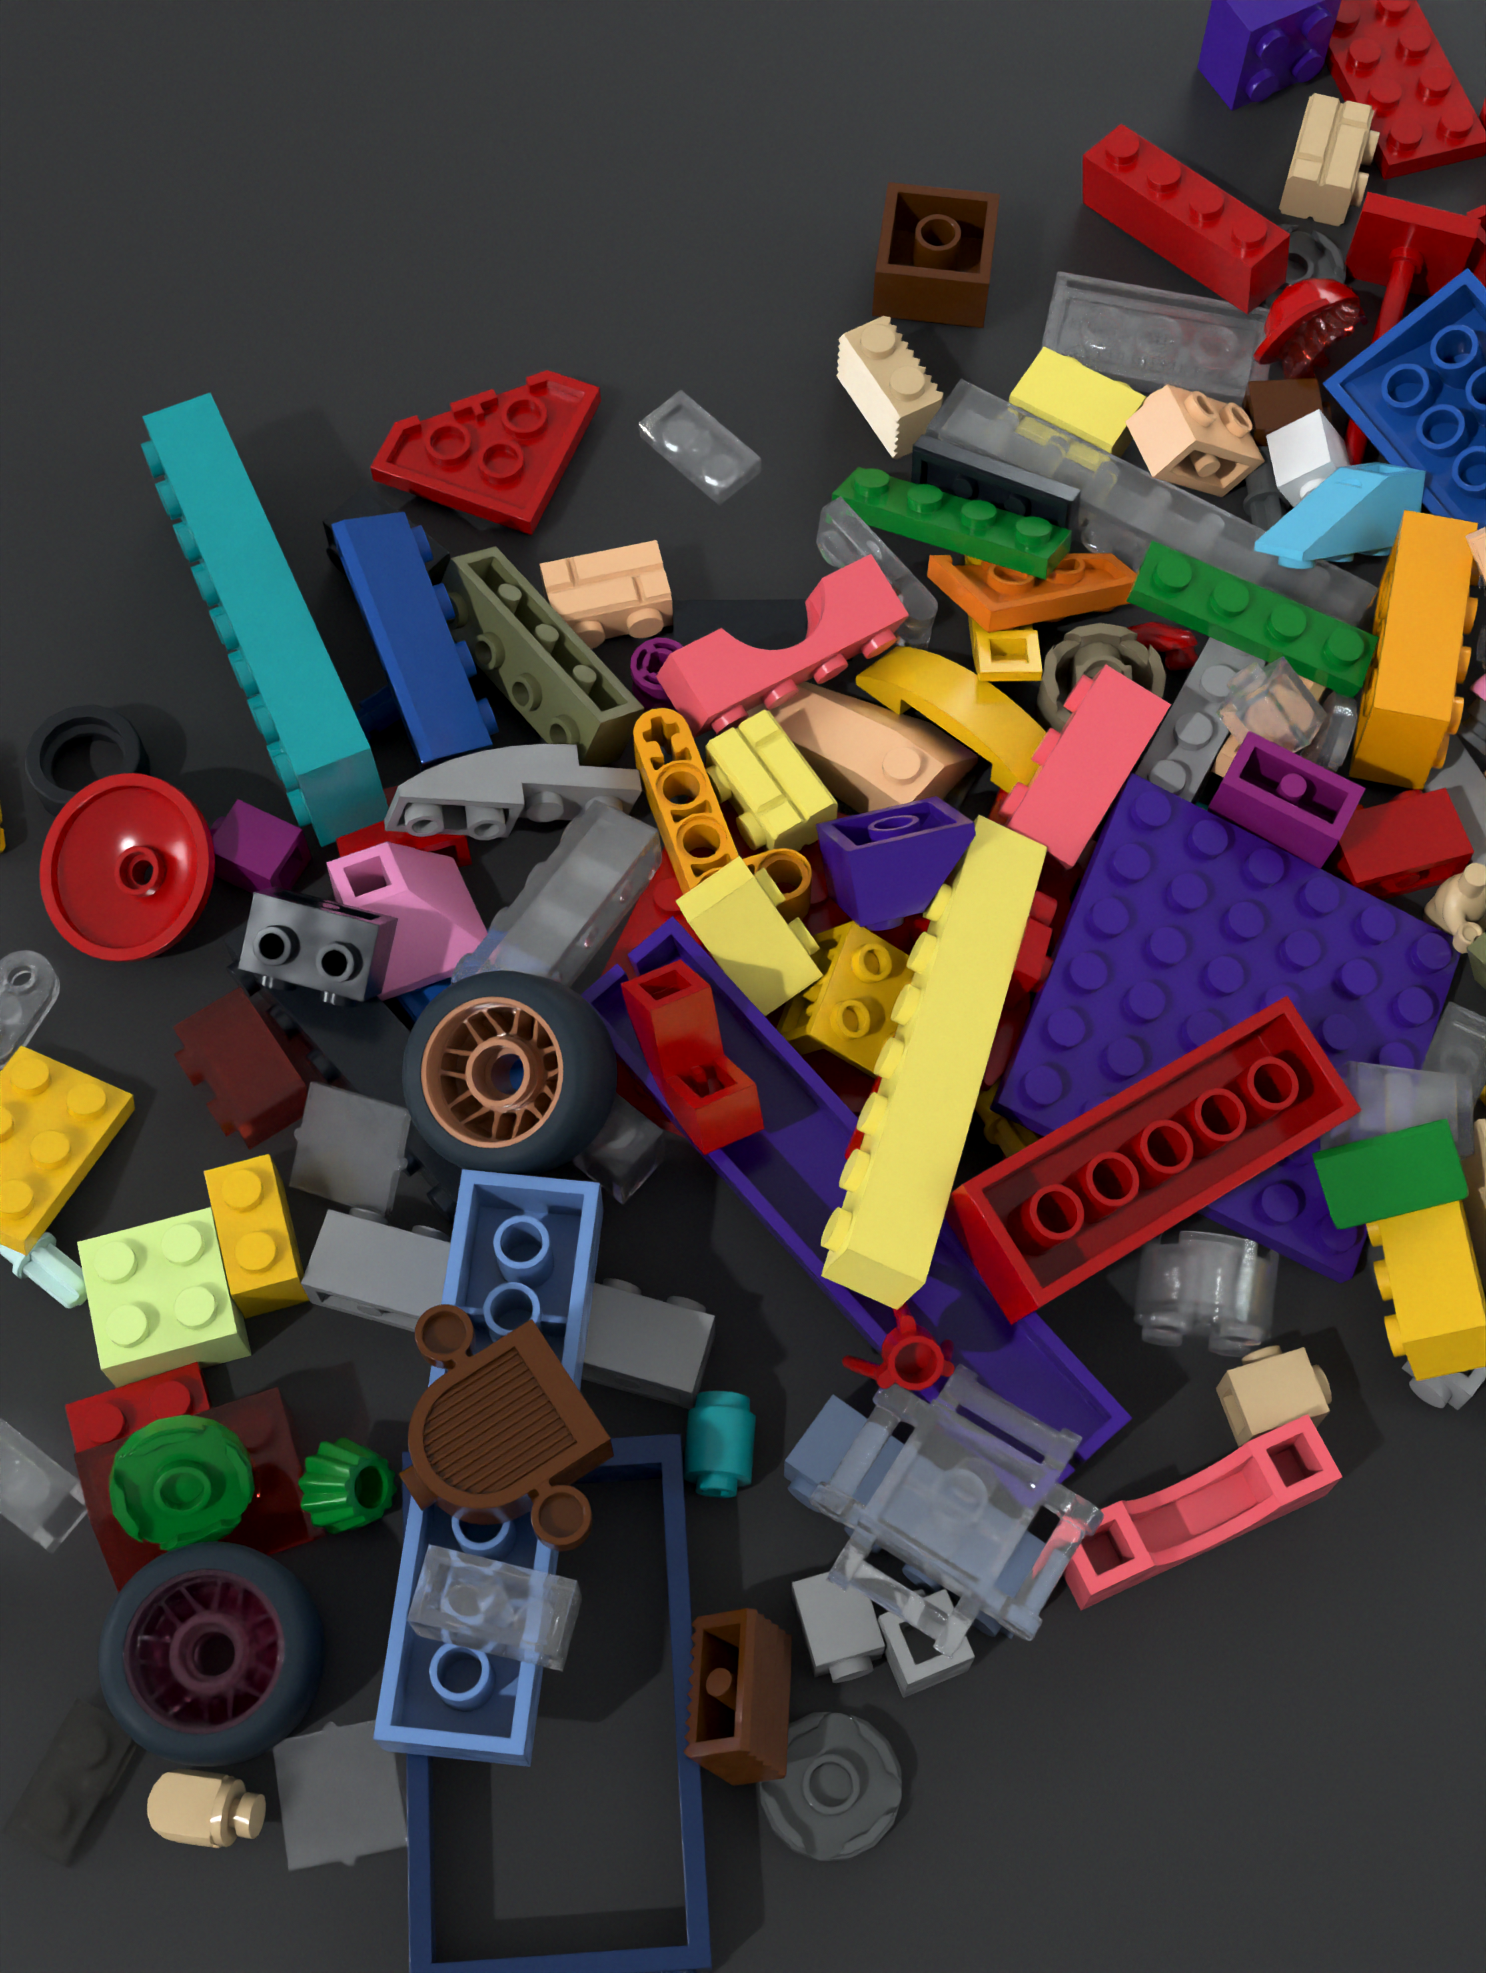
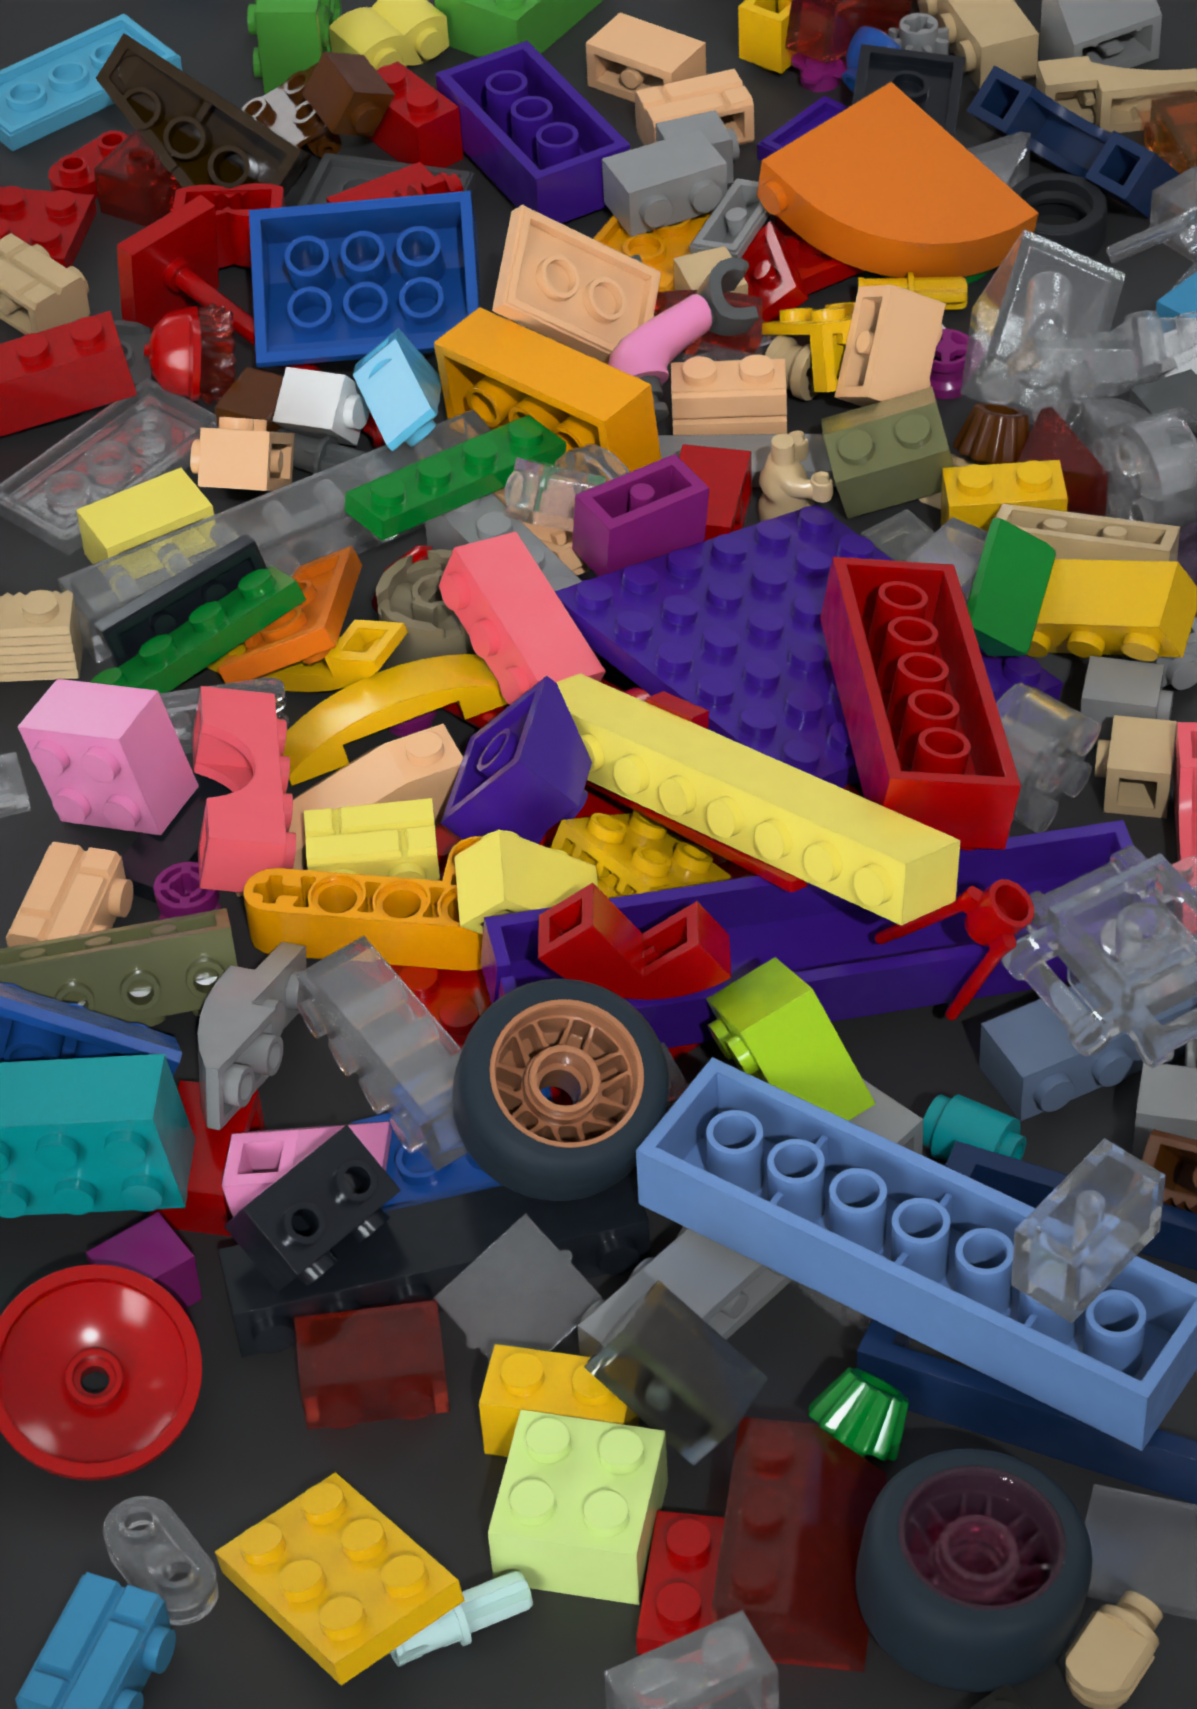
camera: 60 degrees left, 20 degrees down
(181, 1482) = (798, 1513): green tile -> none
(290, 1314) = (676, 1372): none -> clear smoke brick
(502, 1431) = (920, 1180): reddish brown piece -> none
(674, 1243) = (786, 1039): none -> lime brick
(761, 528) = (108, 756): none -> bright pink brick
(1351, 1346) = (1124, 690): none -> light grey brick

